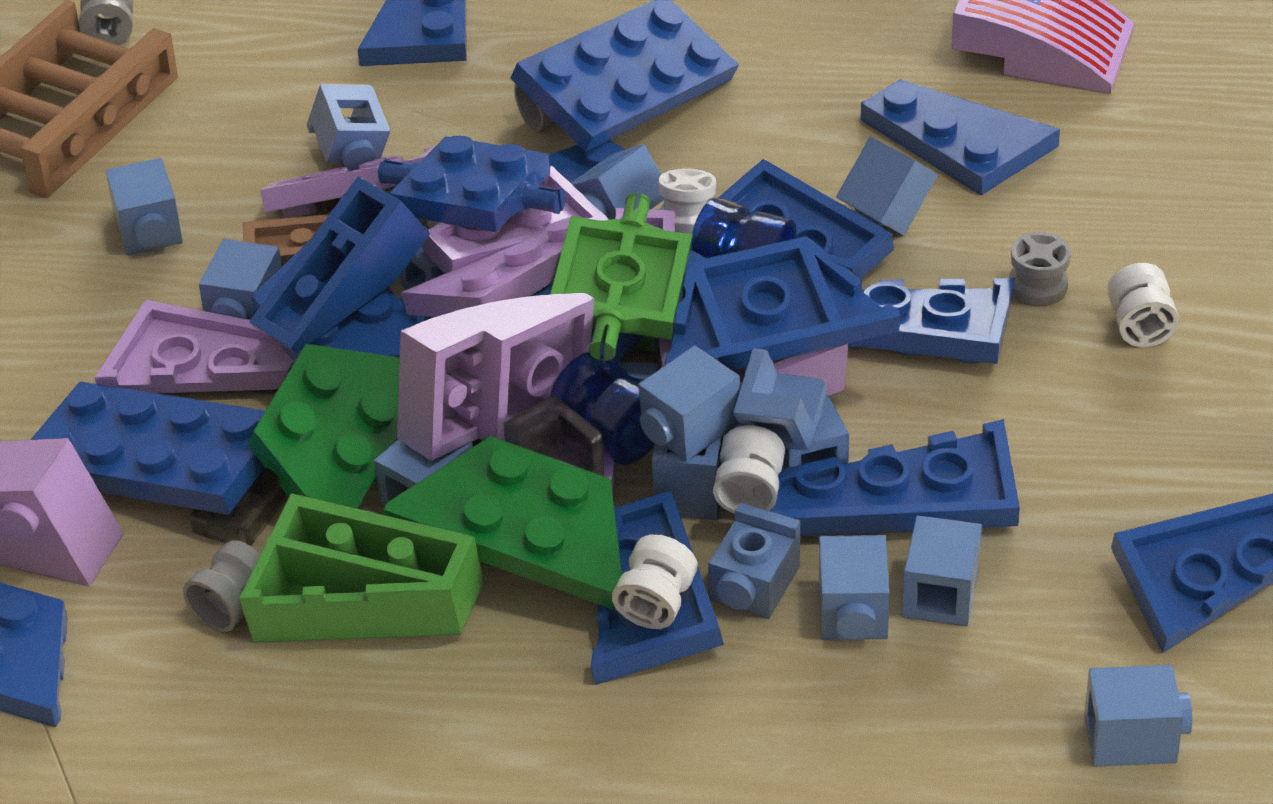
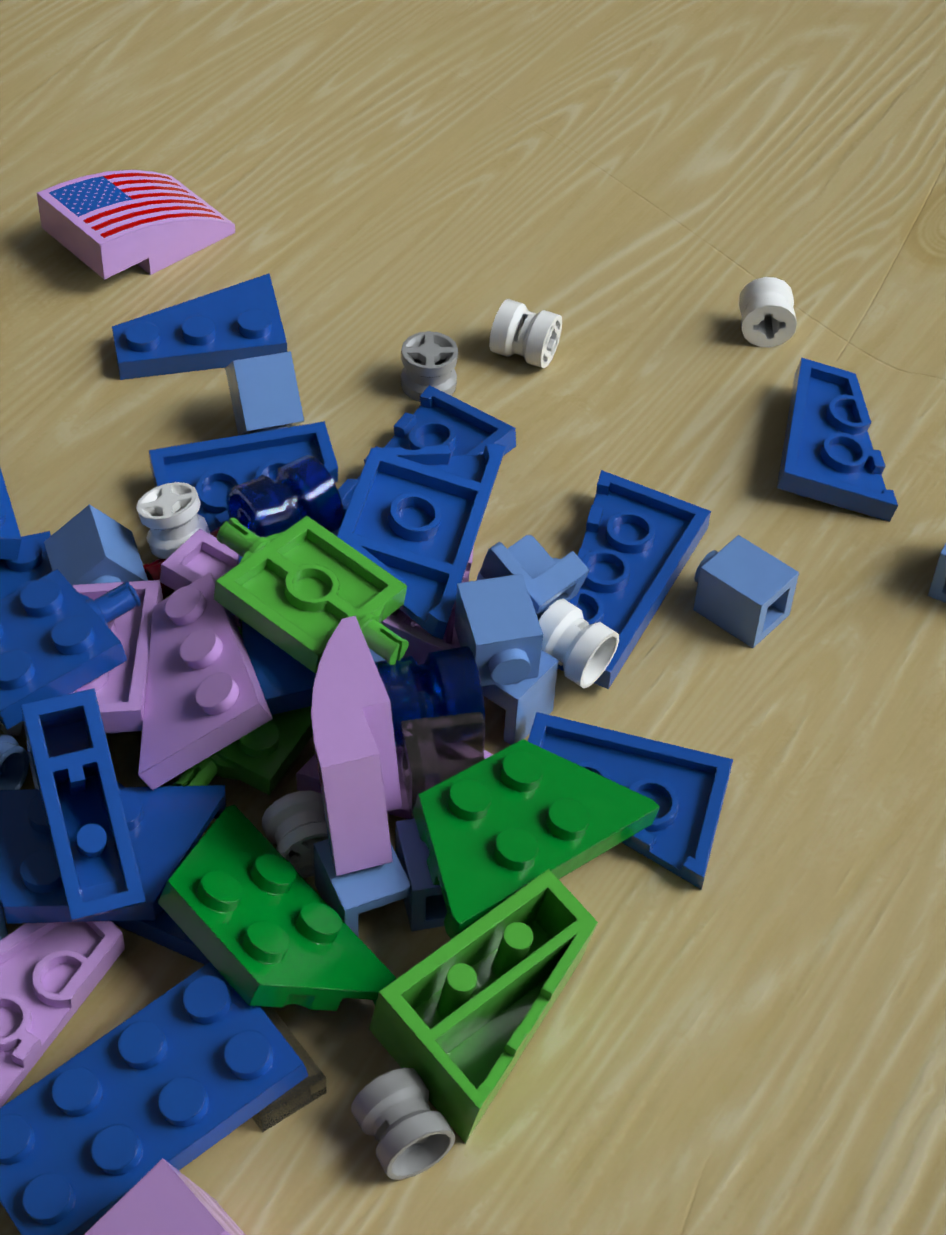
camera: 65 degrees left, 5 degrees up
(652, 586) = (671, 770): white wheel -> none
(755, 561) = (651, 698): medium blue brick -> none
(853, 587) = (730, 654): medium blue brick -> none

